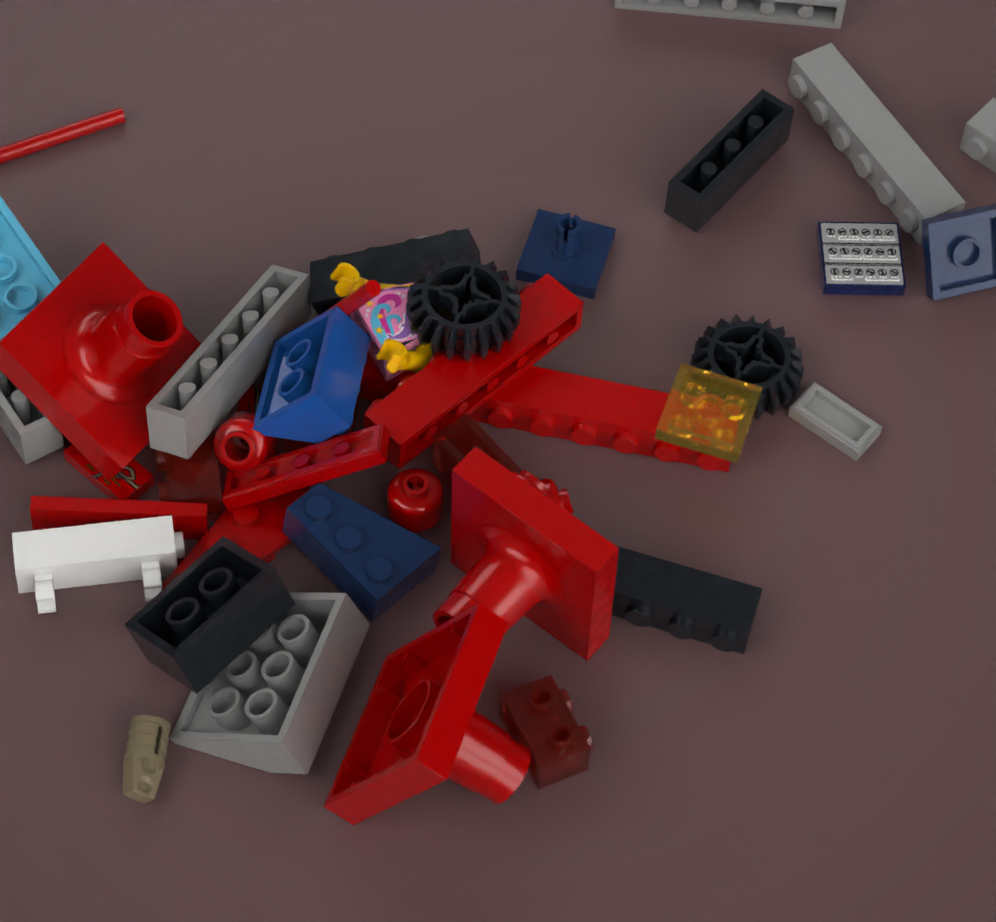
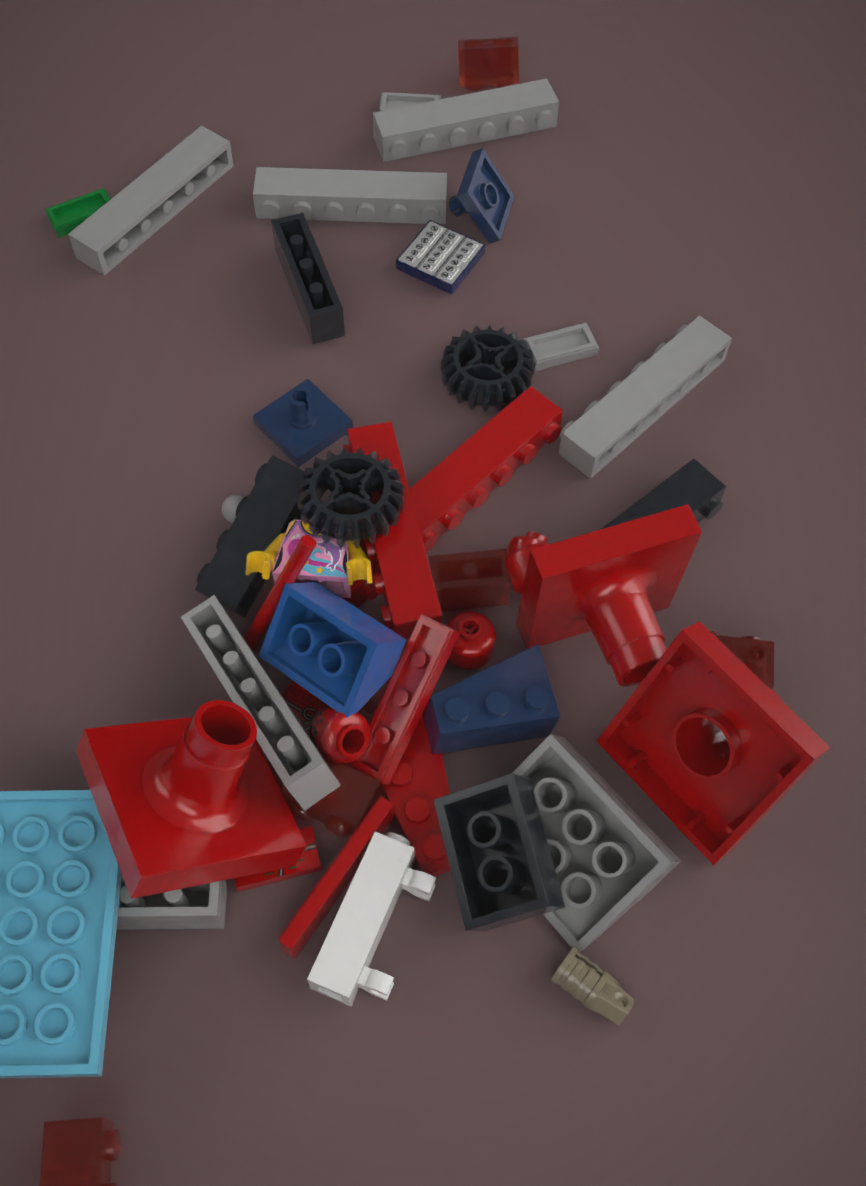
camera: 55 degrees left, 5 degrees up
(708, 413) = (531, 404): clear yellow plate -> none
(825, 520) = (643, 396): none -> light grey brick

